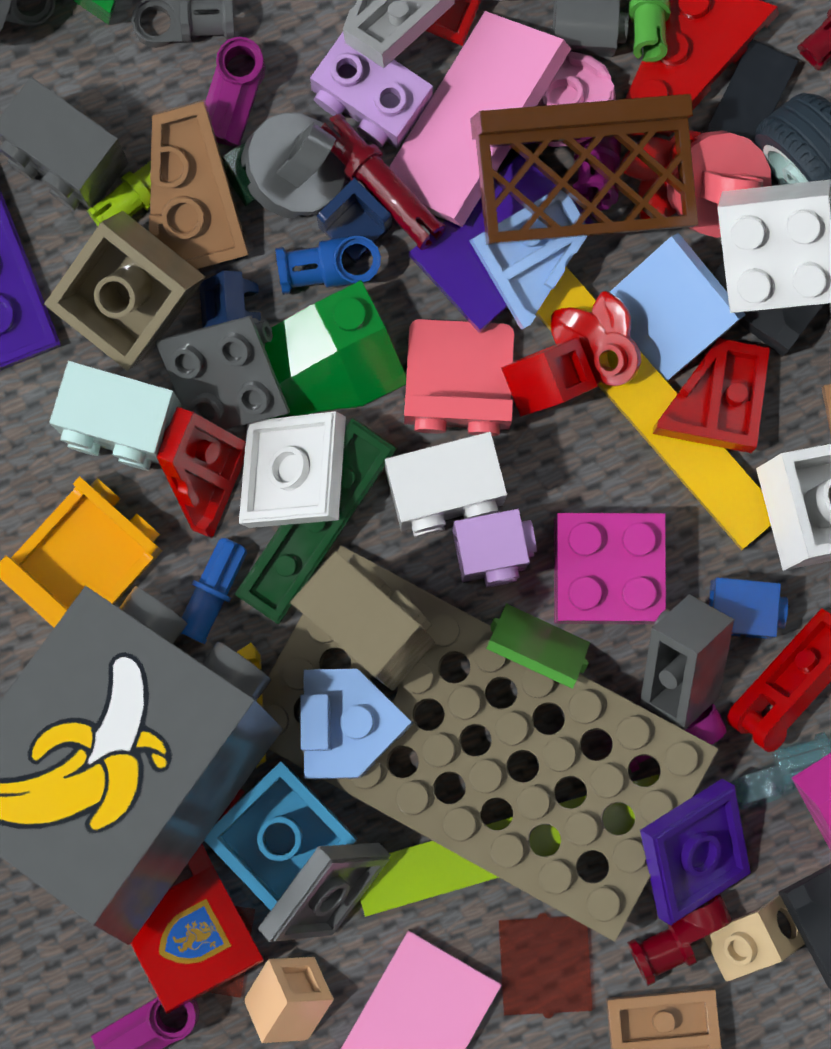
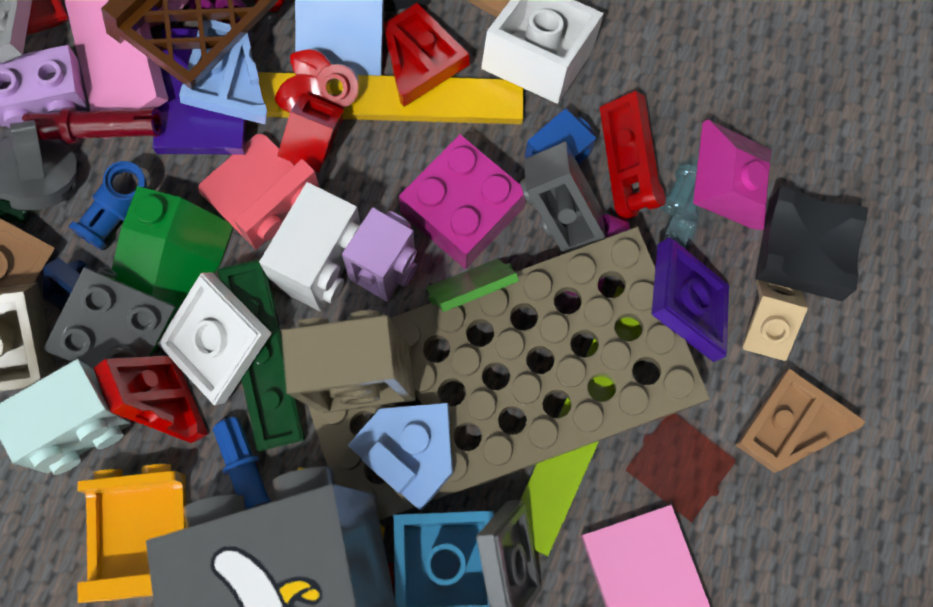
camera: 50 degrees left, 10 degrees down
(354, 214) = (92, 156): dark blue panel -> none
(673, 946) = (738, 368): dark red connector -> none

